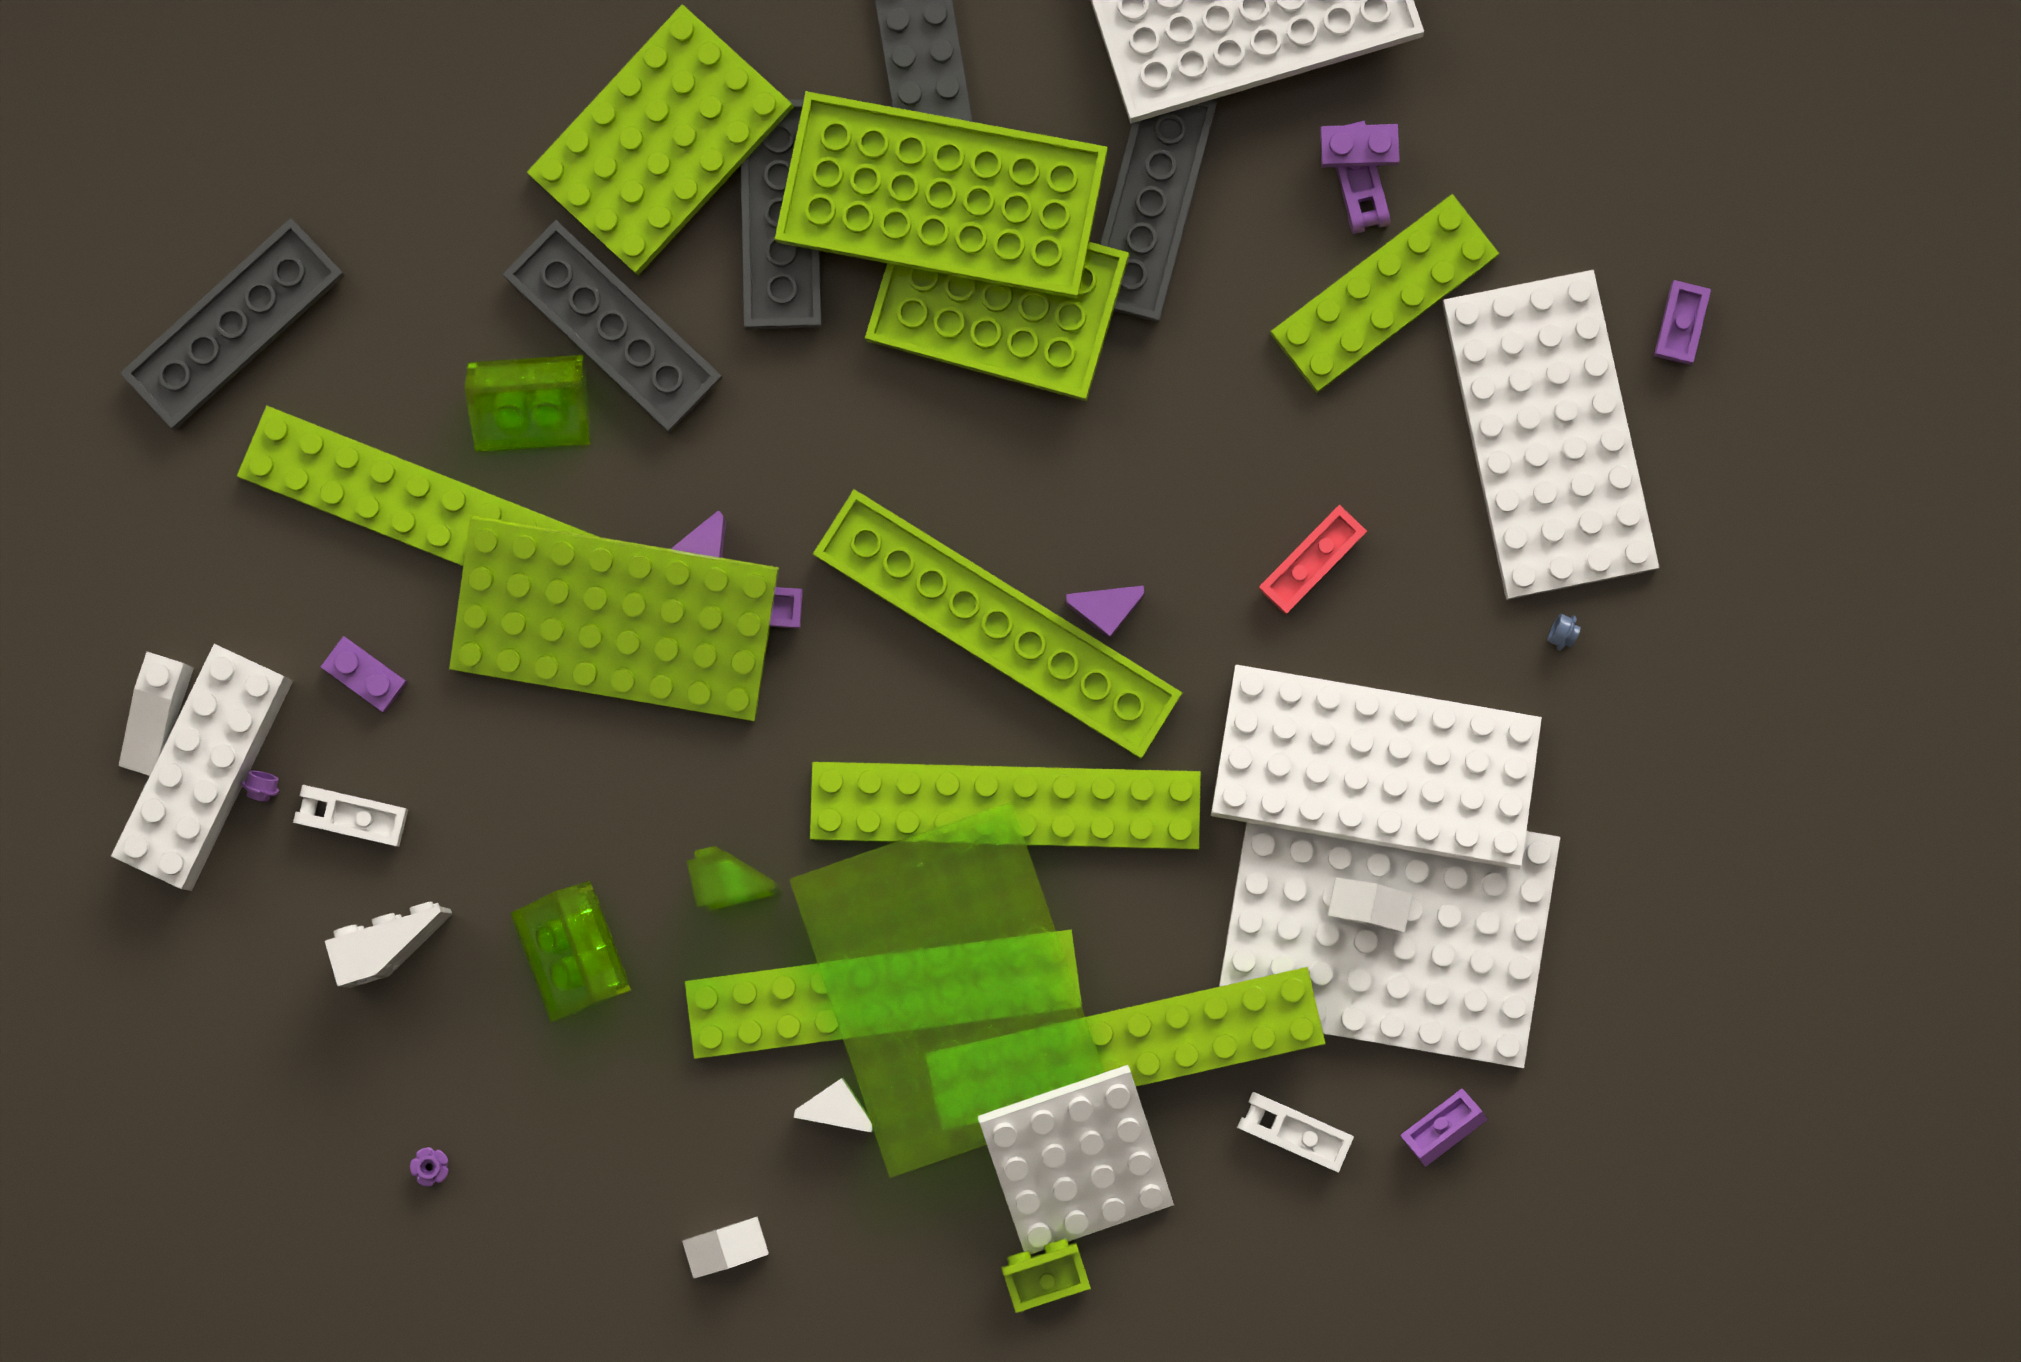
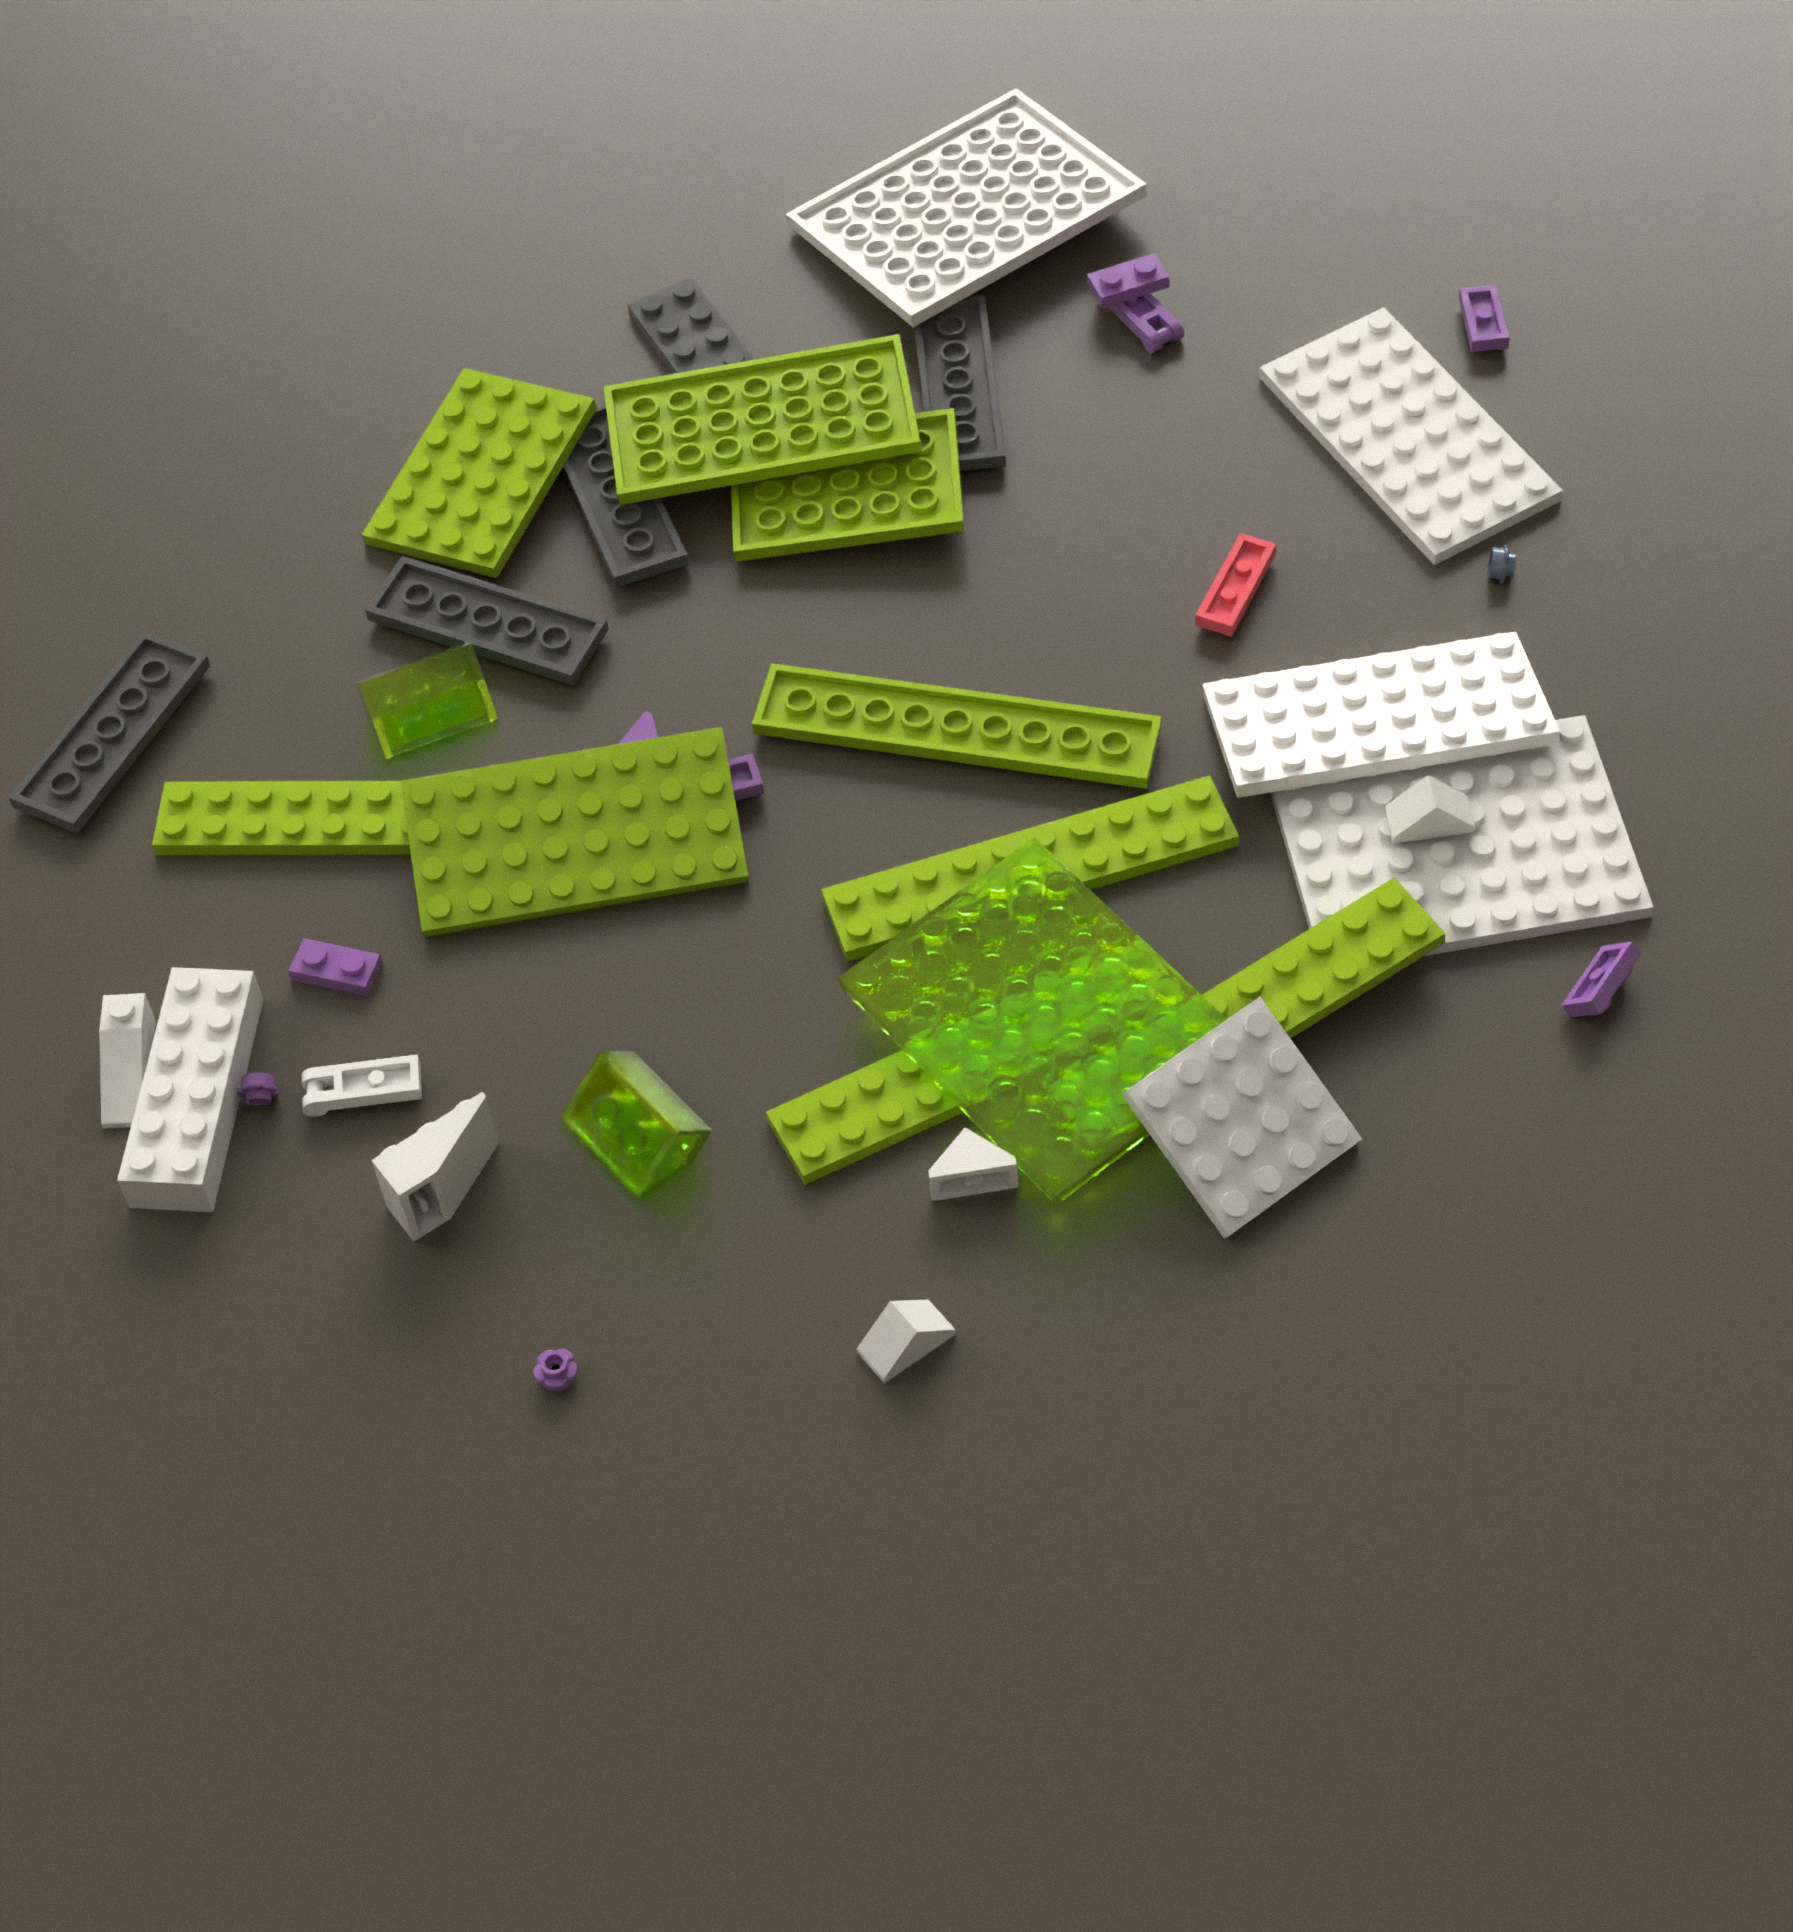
camera: 15 degrees left, 30 degrees down
(725, 880) = (781, 984): clear neon green slope -> none
(1045, 1276) = (1257, 1240): lime bracket -> none
(1105, 608) = (1054, 676): medium lavender slope -> none
(1297, 1132) = (1454, 1035): white plate -> none
(1384, 293) = (1202, 384): lime plate -> none

